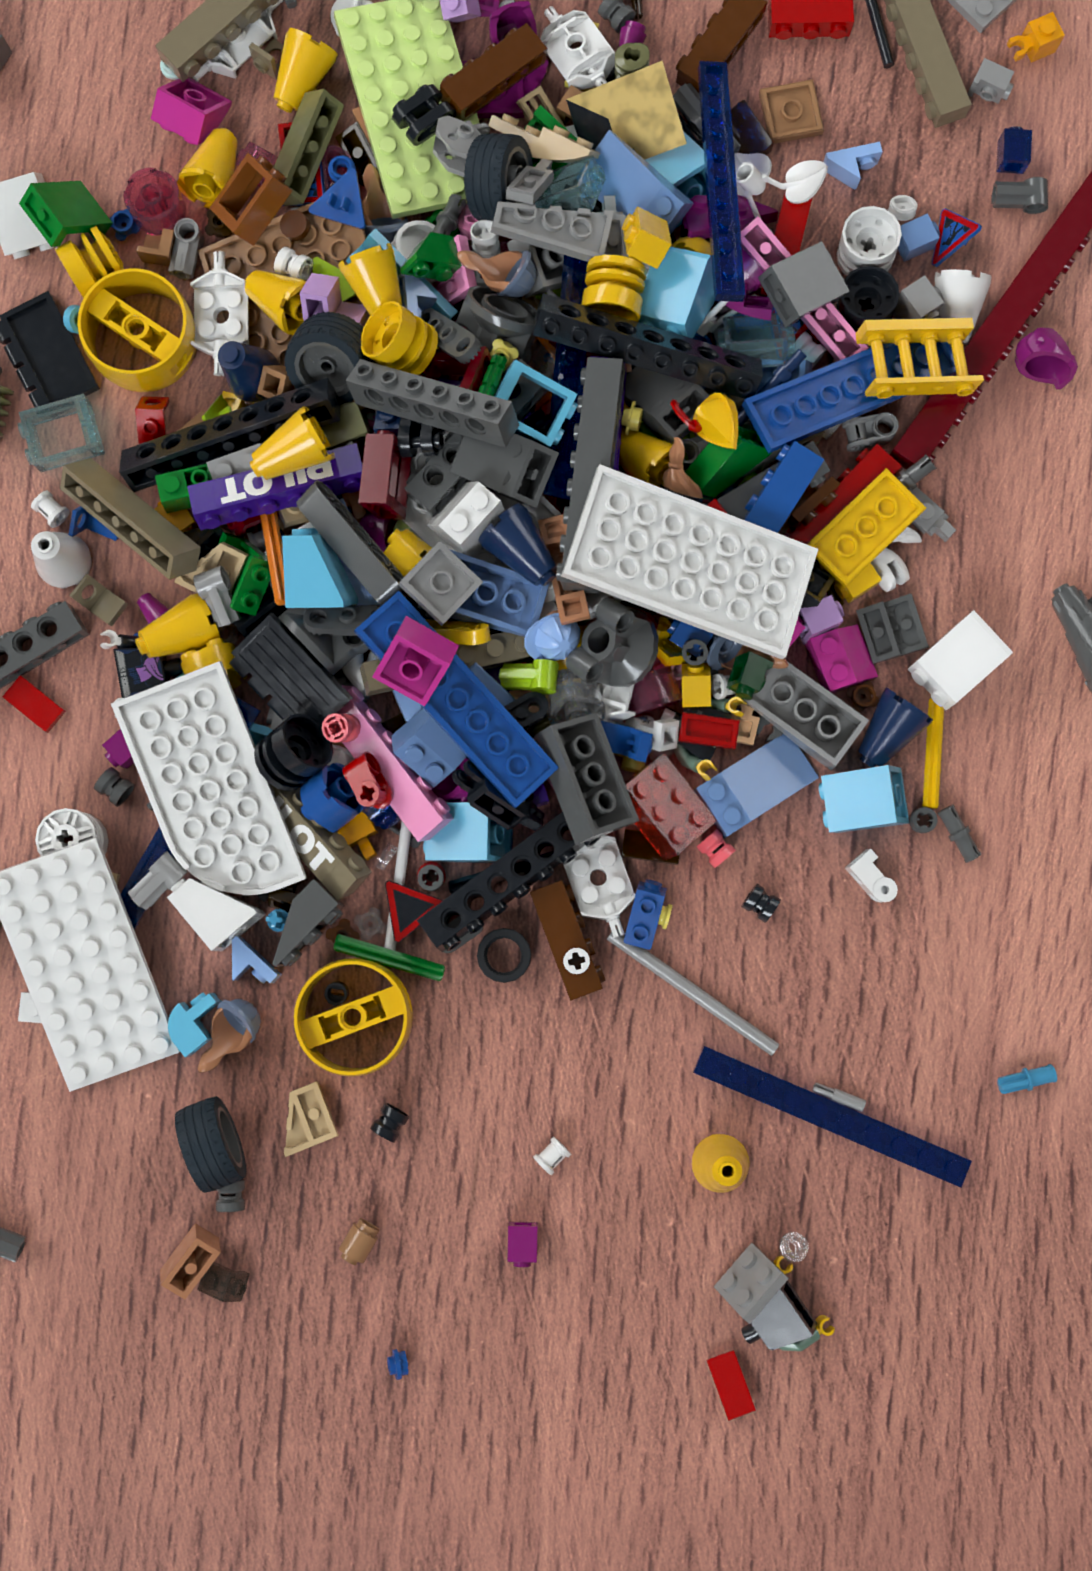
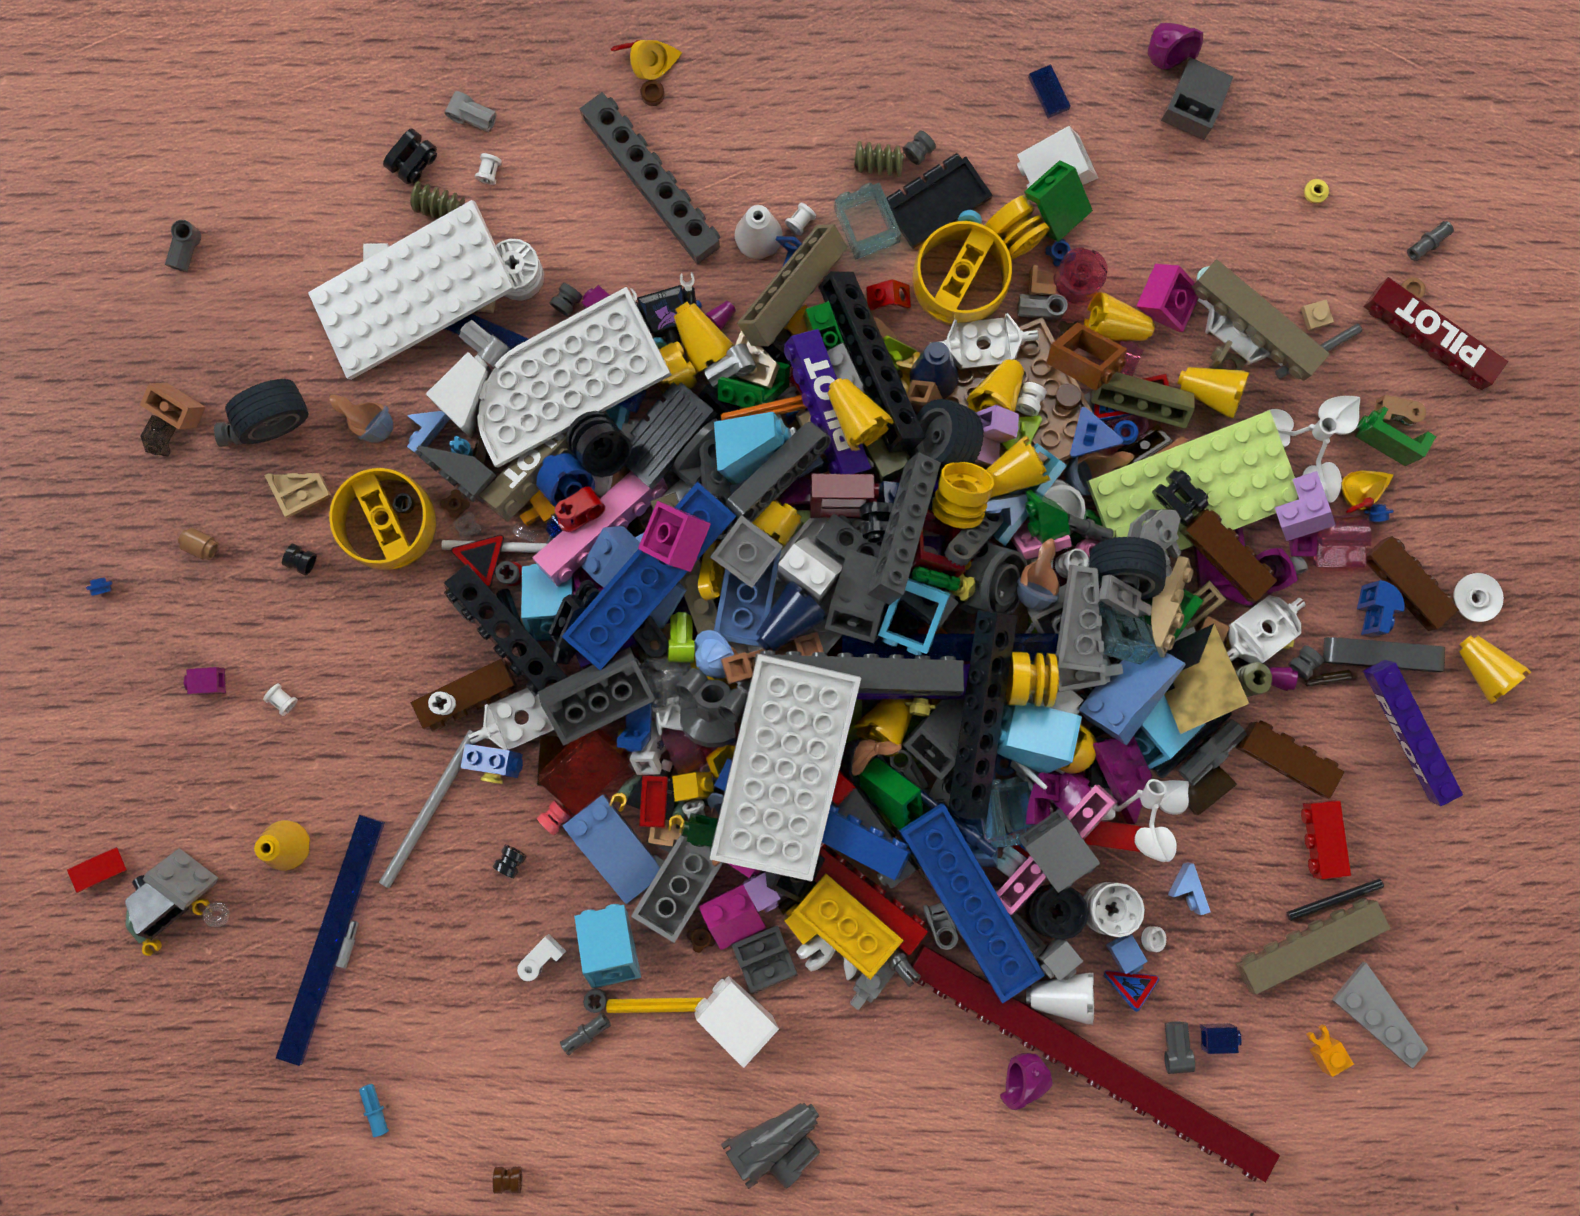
camera: 80 degrees right, 0 degrees up
(33, 704) = (632, 225): red tile -> none
(102, 602) = (724, 272): dark tan bracket -> none
(185, 1024) = (368, 381): medium azure brick -> none
(347, 728) = (624, 482): coral wheel -> none
(389, 957) = (437, 544): green axle -> none
(483, 950) = (428, 641): black tyre -> none
(646, 237) = (1081, 703): yellow brick -> none
(689, 645) = (713, 787): dark grey bush -> none
(713, 420) = (921, 777): yellow piece -> none
(721, 182) = (1145, 767): clear blue plate -> none
(791, 111) = (1233, 829): medium nougat tile -> none
(823, 496) = (872, 886): reddish brown plate -> none
(891, 728) = (672, 965): dark blue cone -> none
(926, 332) = (1028, 968): yellow fence -> none
(992, 82) = (1282, 1013): light grey brick -> none

